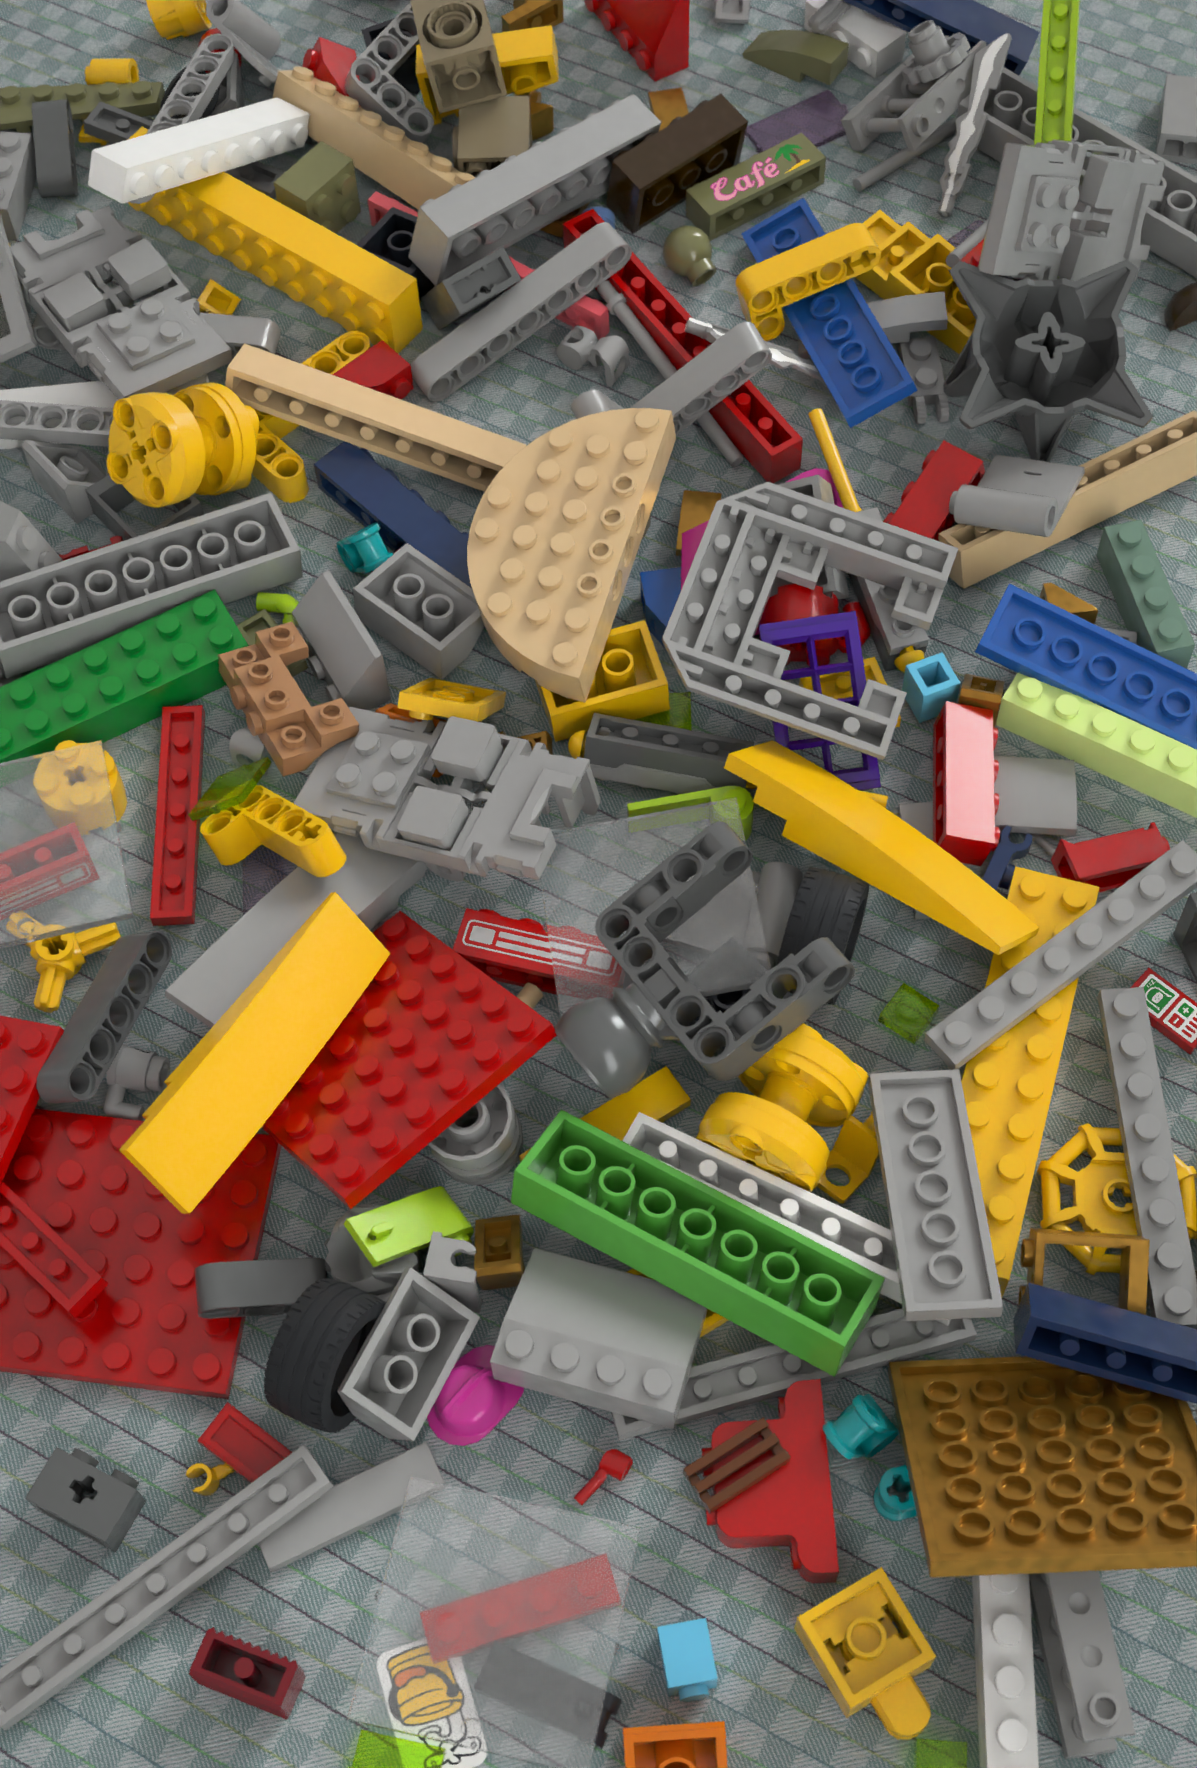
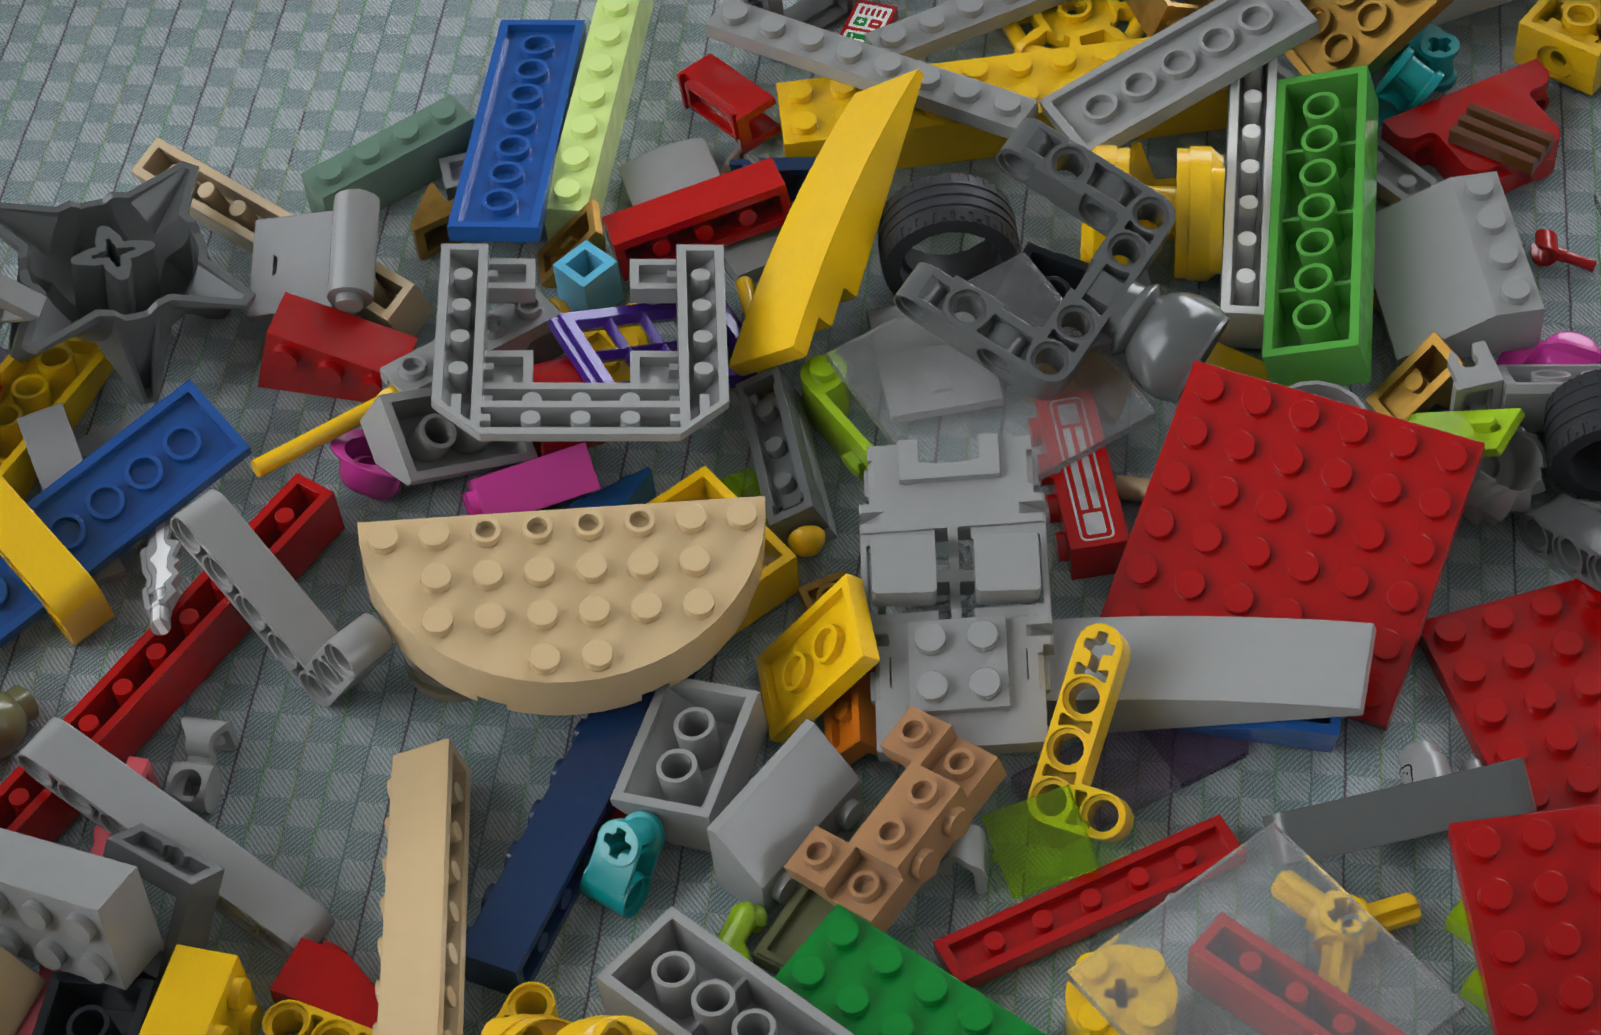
camera: 110 degrees left, 10 degrees down
(254, 1055) = (1381, 593): yellow slope -> none
(617, 305) = (125, 744): light grey bar -> none

